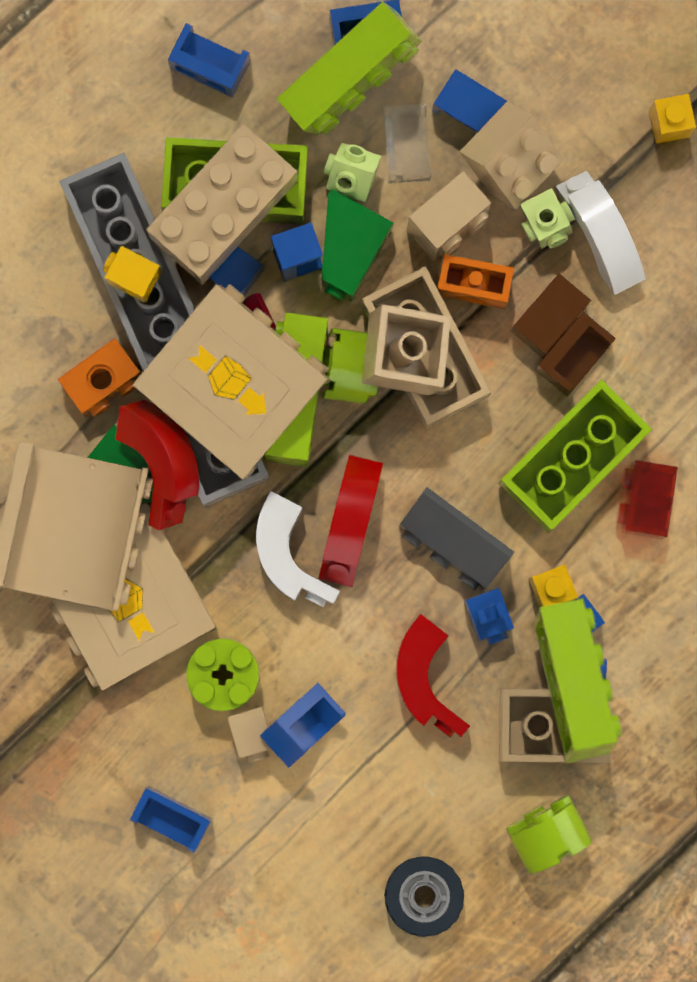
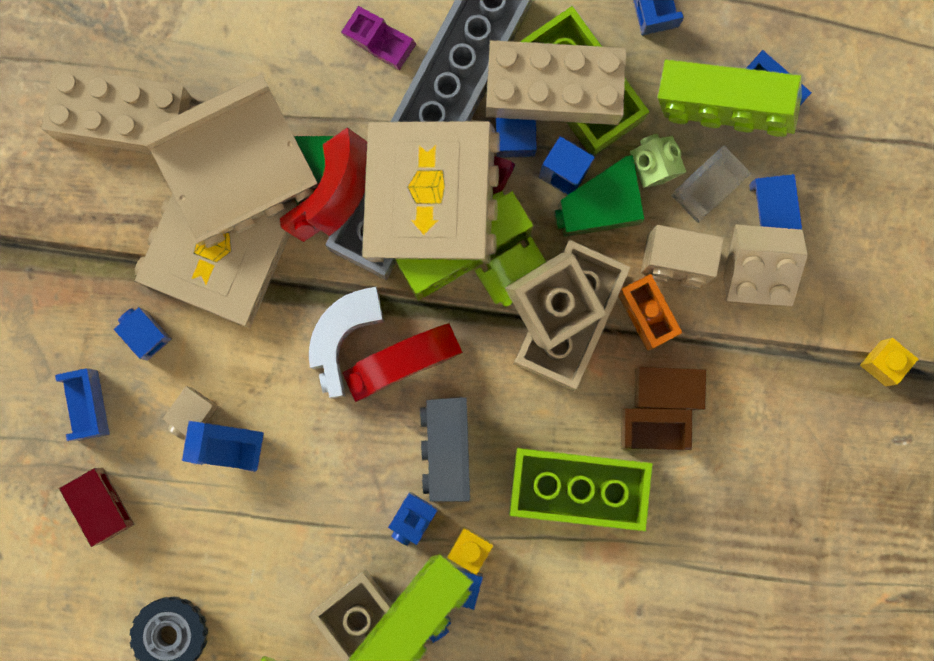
camera: 55 degrees right, 0 degrees up
(55, 321) = (378, 38): none -> magenta slope
(108, 359) = (349, 88): orange brick -> none
(131, 273) = (451, 58): yellow brick -> none
(148, 721) = (141, 333): none -> blue brick
(209, 659) = (197, 353): lime brick -> none
(267, 874) = (96, 506): none -> dark red panel
(412, 669) = (320, 500): red arch -> none
(547, 208) = (740, 319): yellowish green brick -> none
(605, 231) = (764, 378): white arch -> none
(647, 499) = (592, 568): clear red brick -> none

